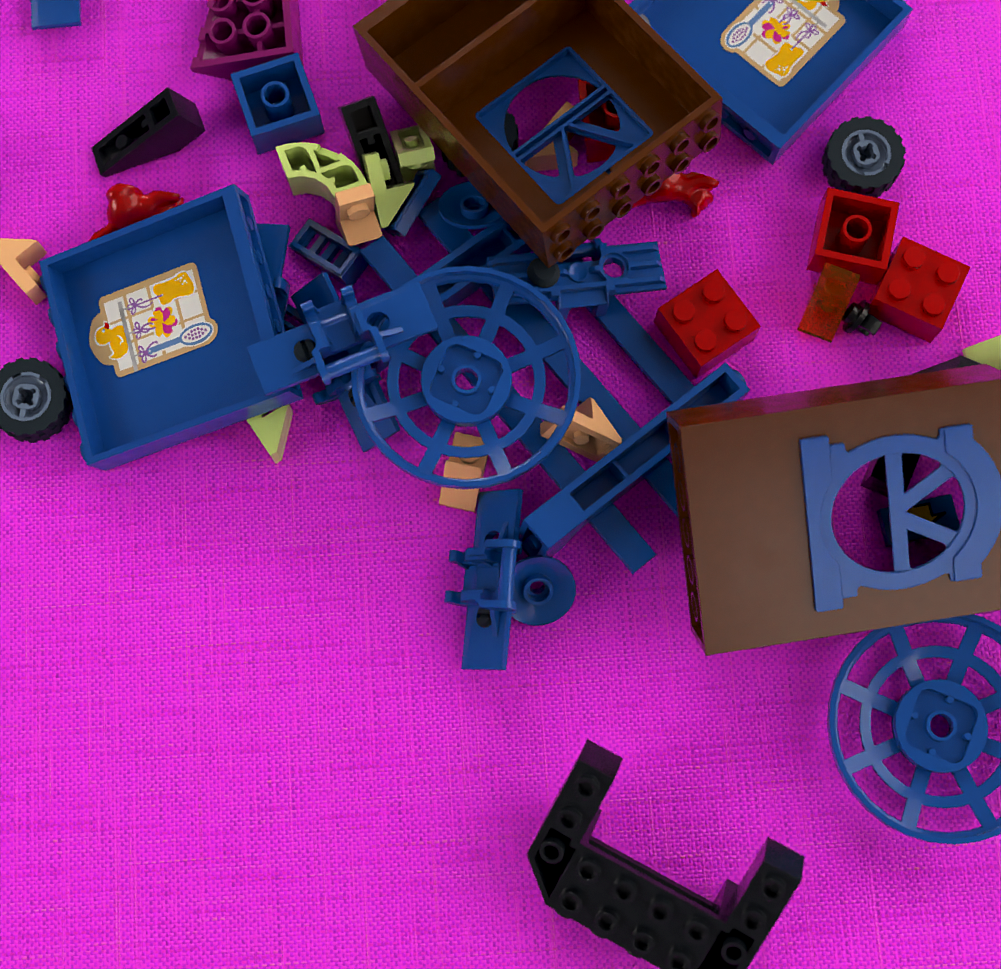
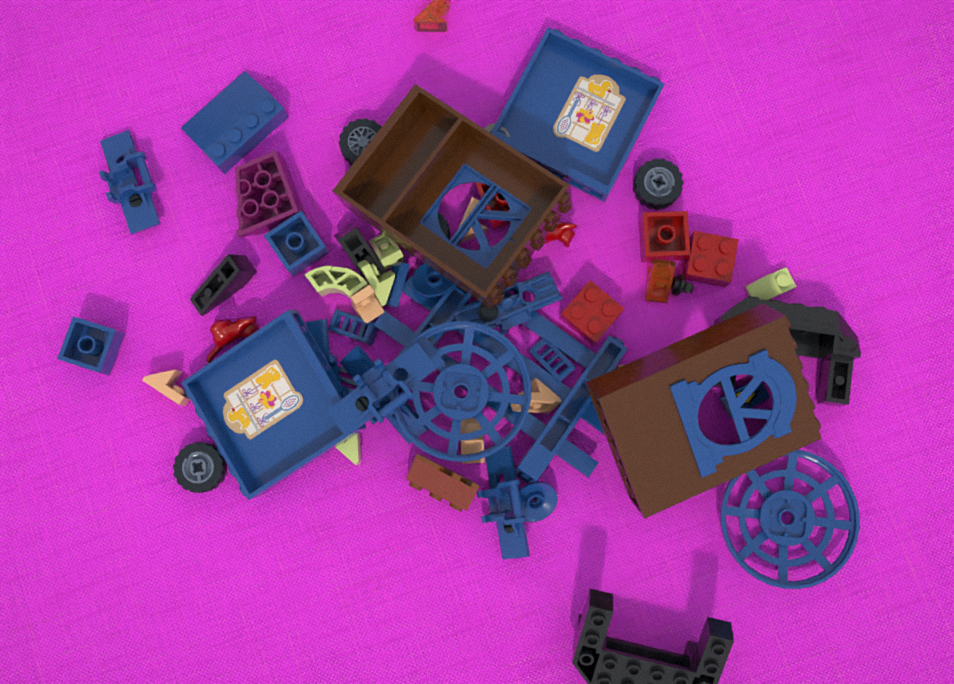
camera: 15 degrees left, 5 degrees up
(398, 519) = (441, 483): none -> dark orange wedge
(637, 407) = (545, 364): none -> blue slope

